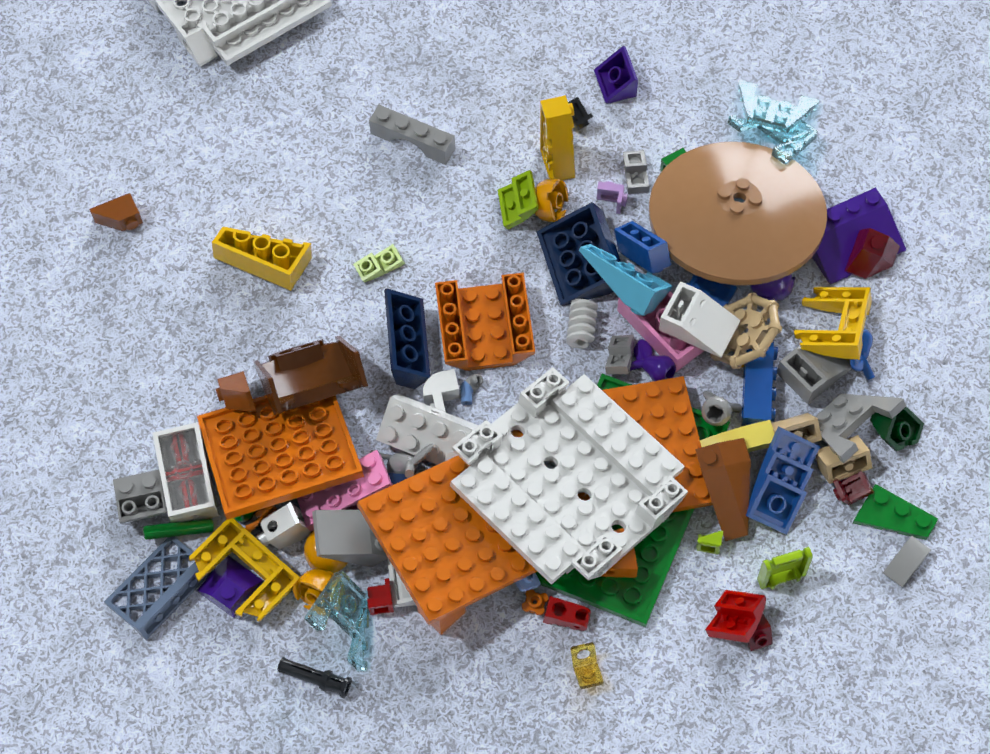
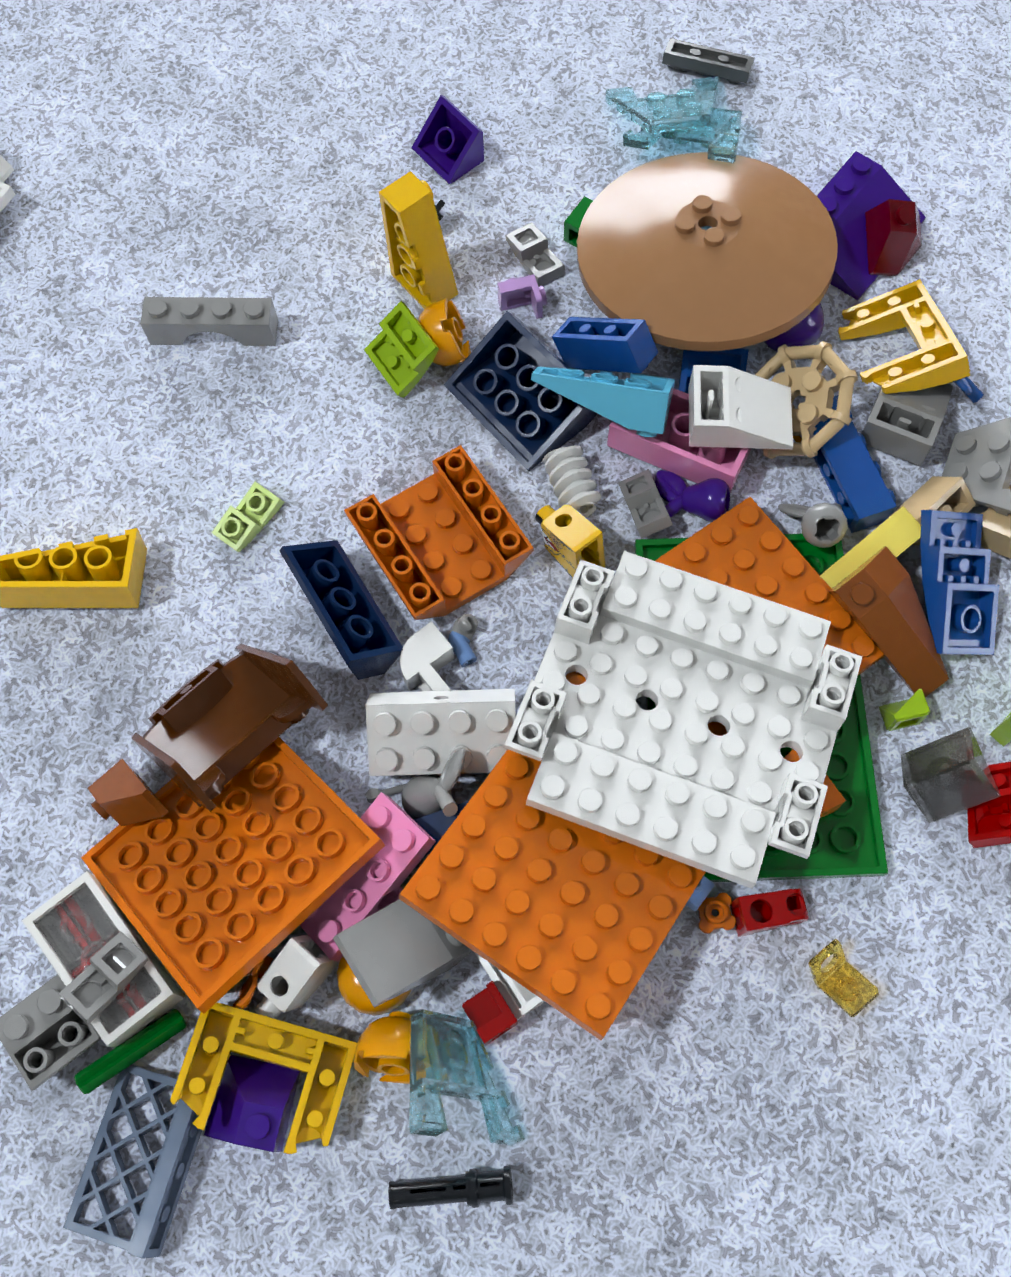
camera: 25 degrees left, 5 degrees up
(183, 481) = (105, 978): none -> light grey slope
(561, 351) = (570, 537): none -> yellow torso
(711, 587) = (948, 776): none -> clear smoke slope
(818, 86) = (708, 60): none -> dark grey plate

